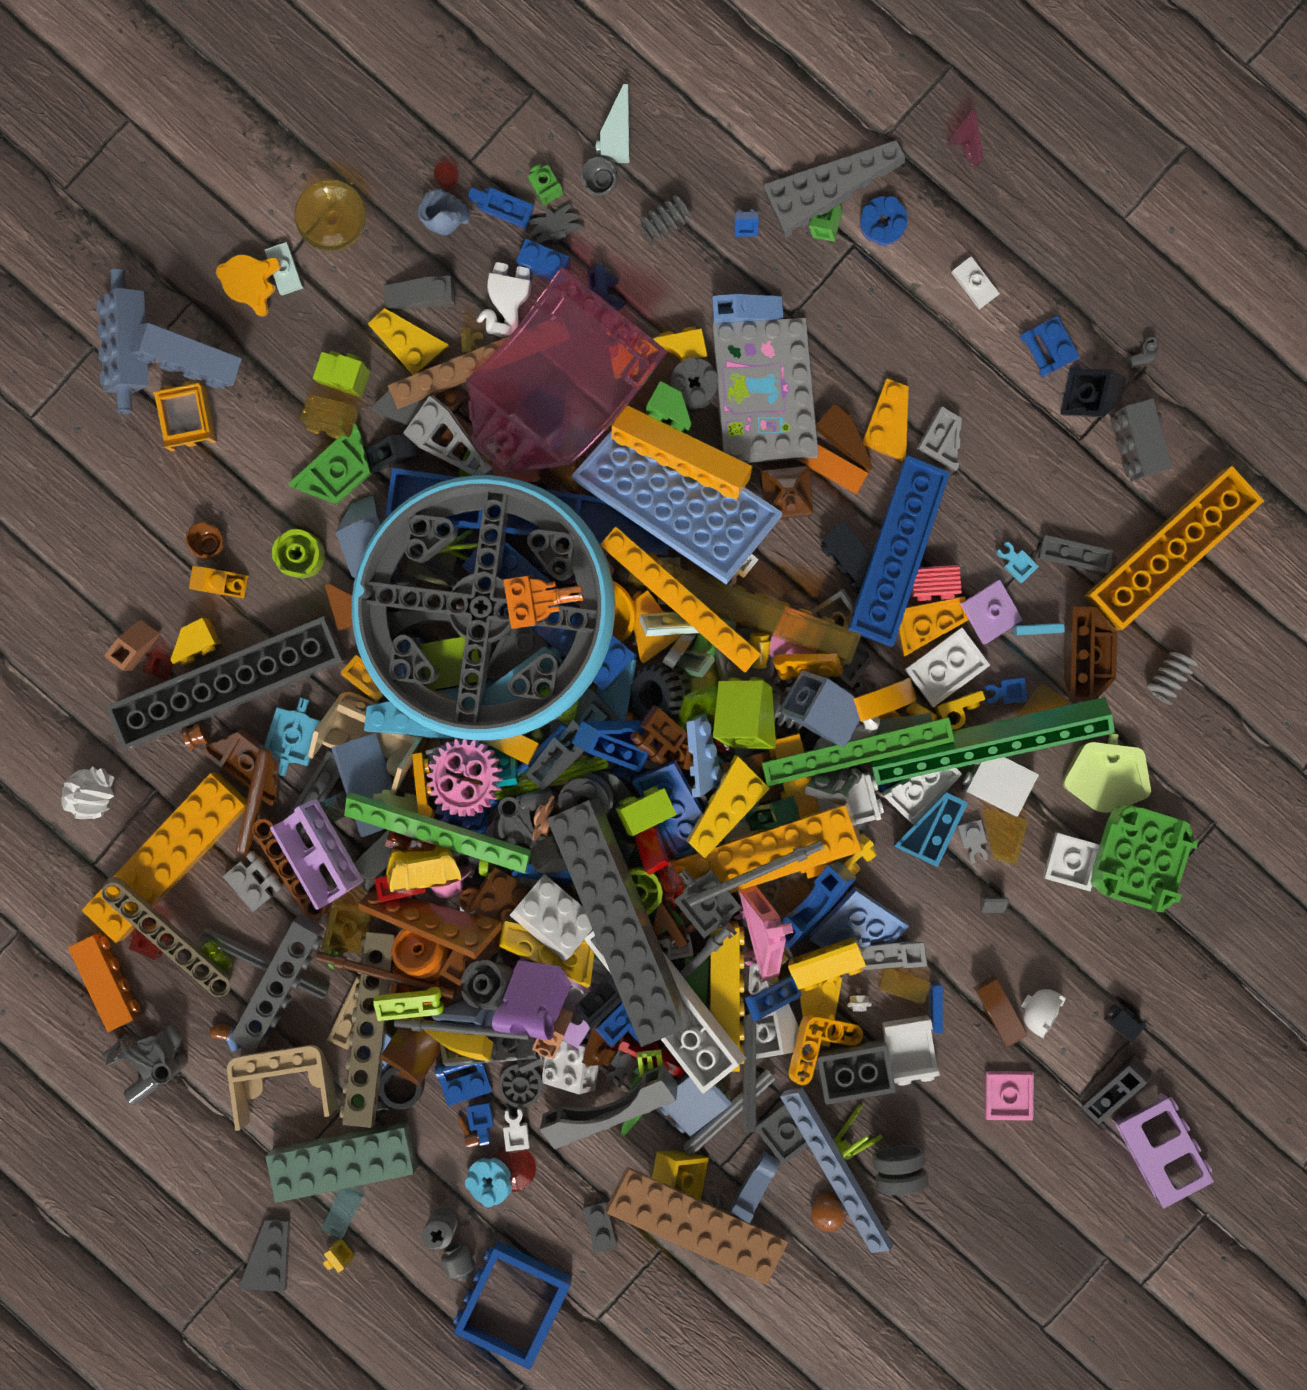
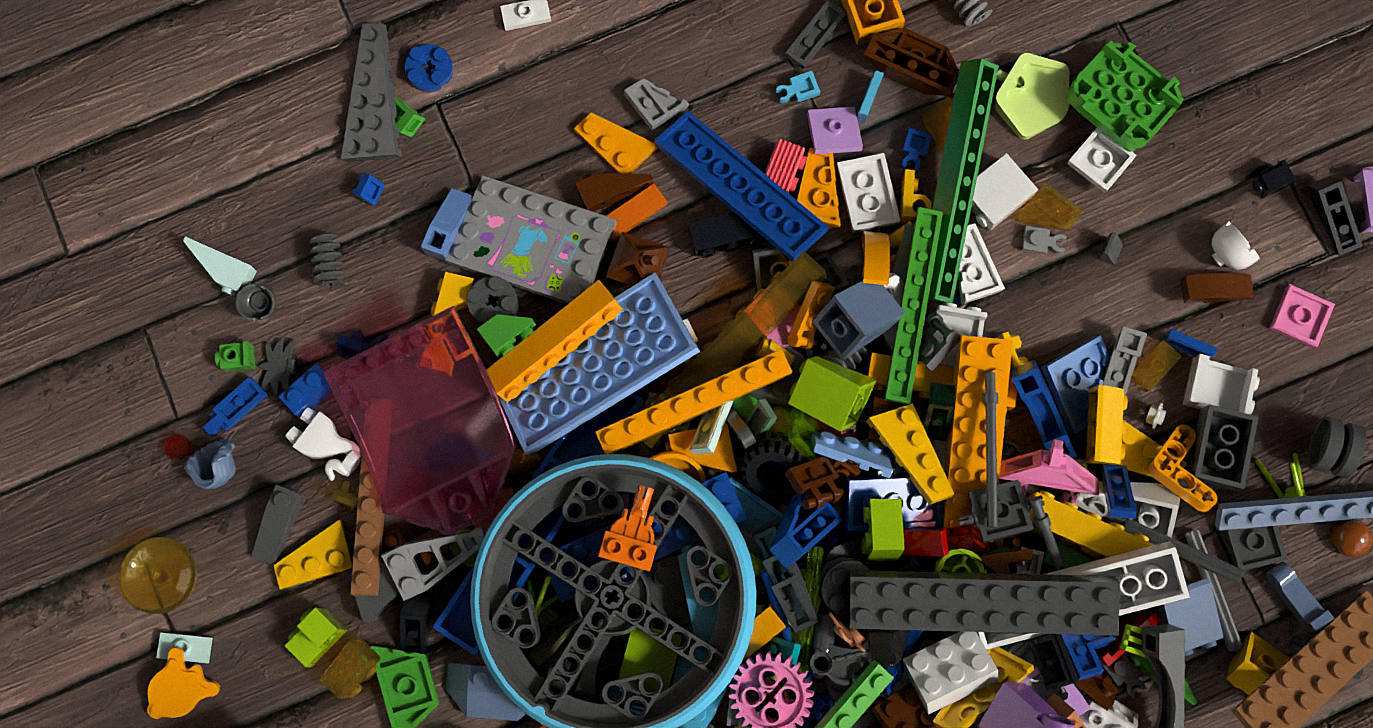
camera: 70 degrees left, 10 degrees down
(484, 867) = (869, 719): lime tile -> none
(934, 830) = (1018, 270): dark azure wedge -> none

